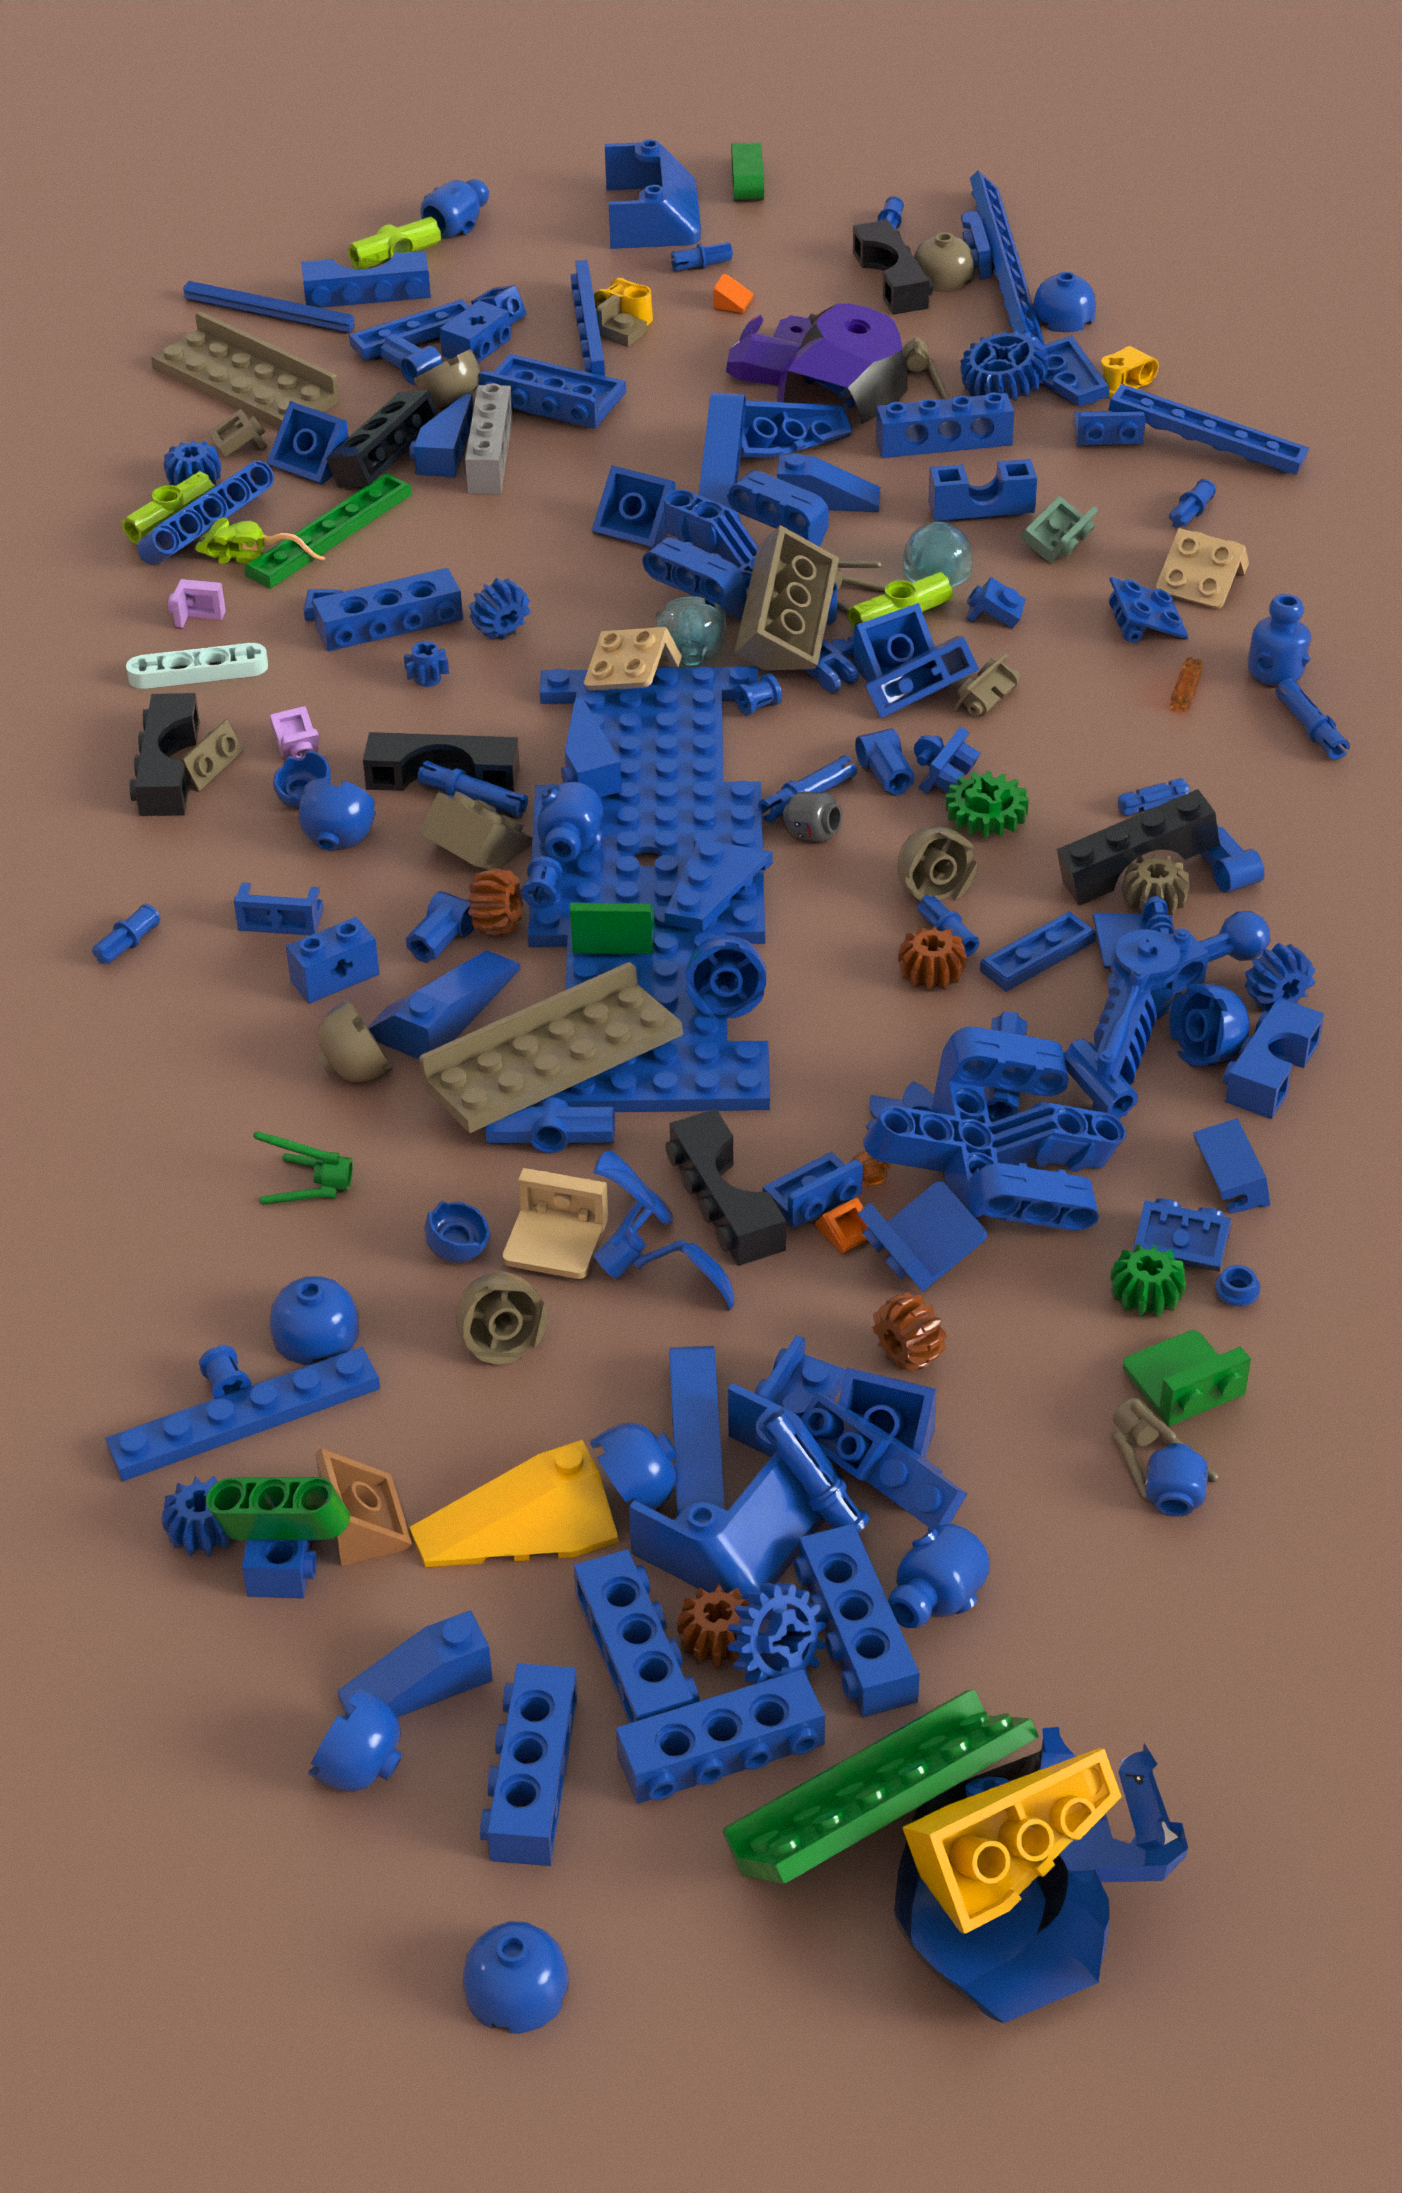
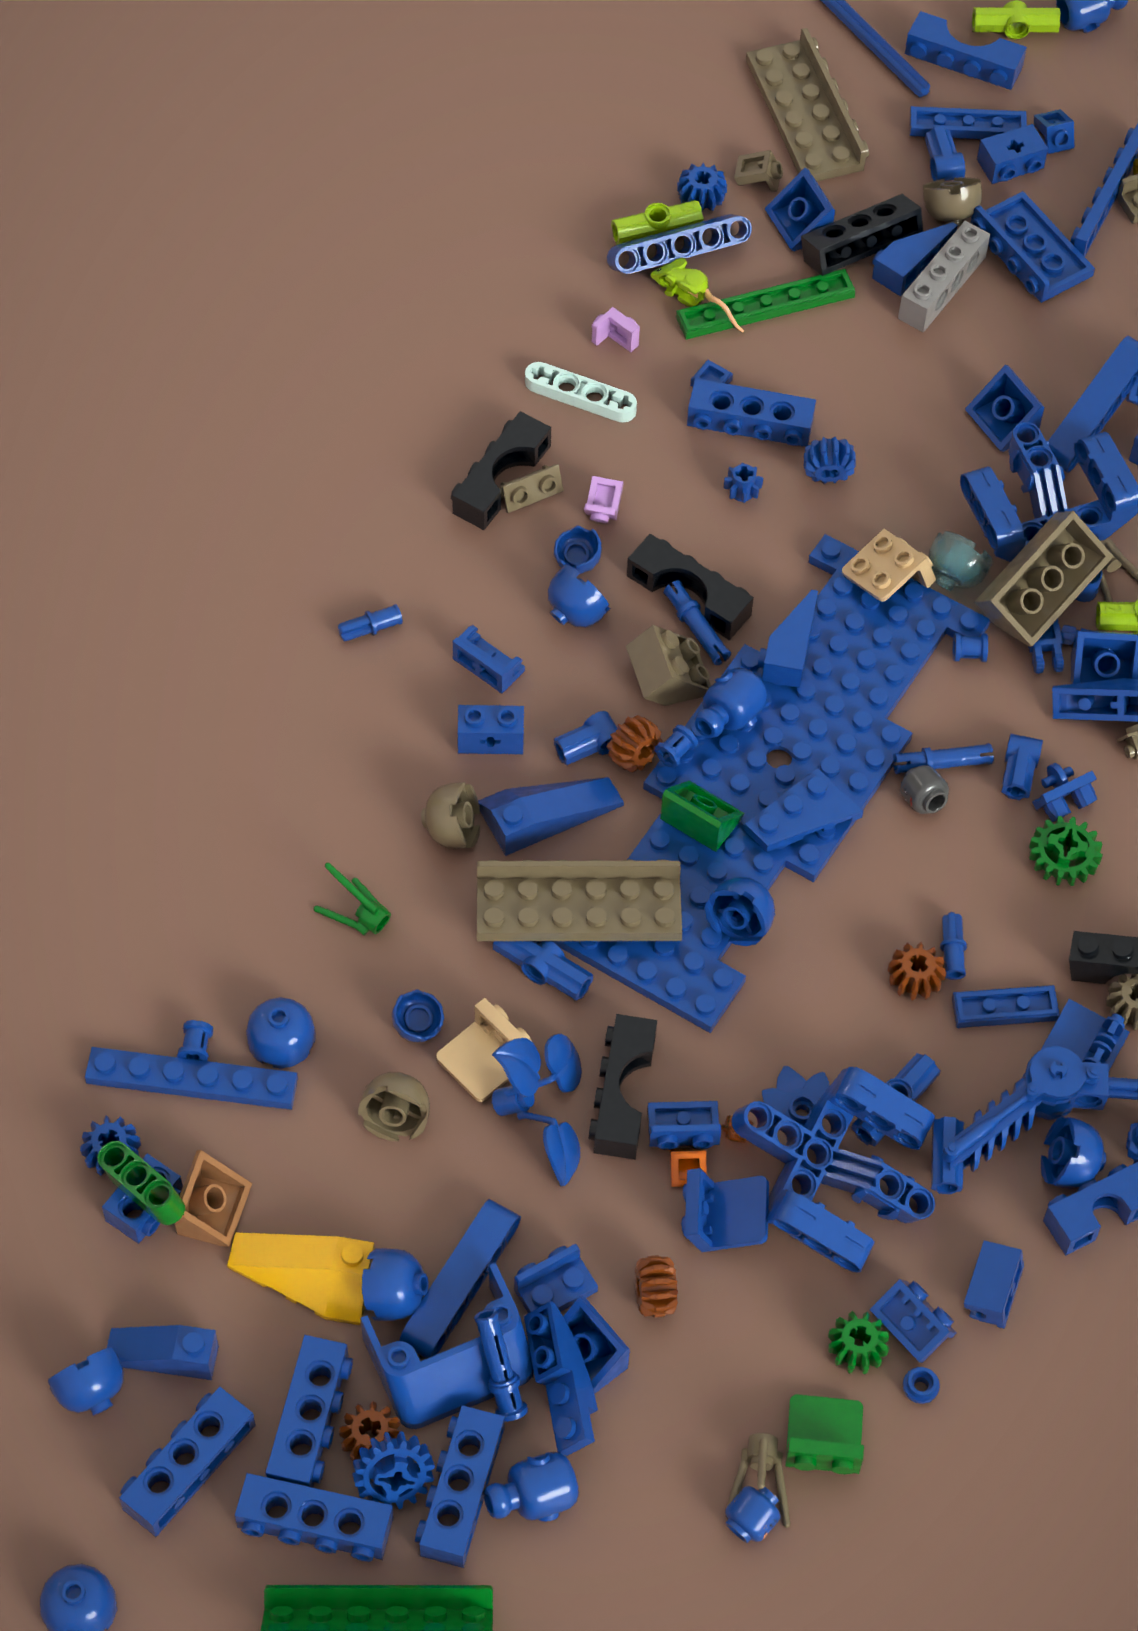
camera: 30 degrees right, 15 degrees up
(936, 863) = (978, 889): dark tan cylinder -> none

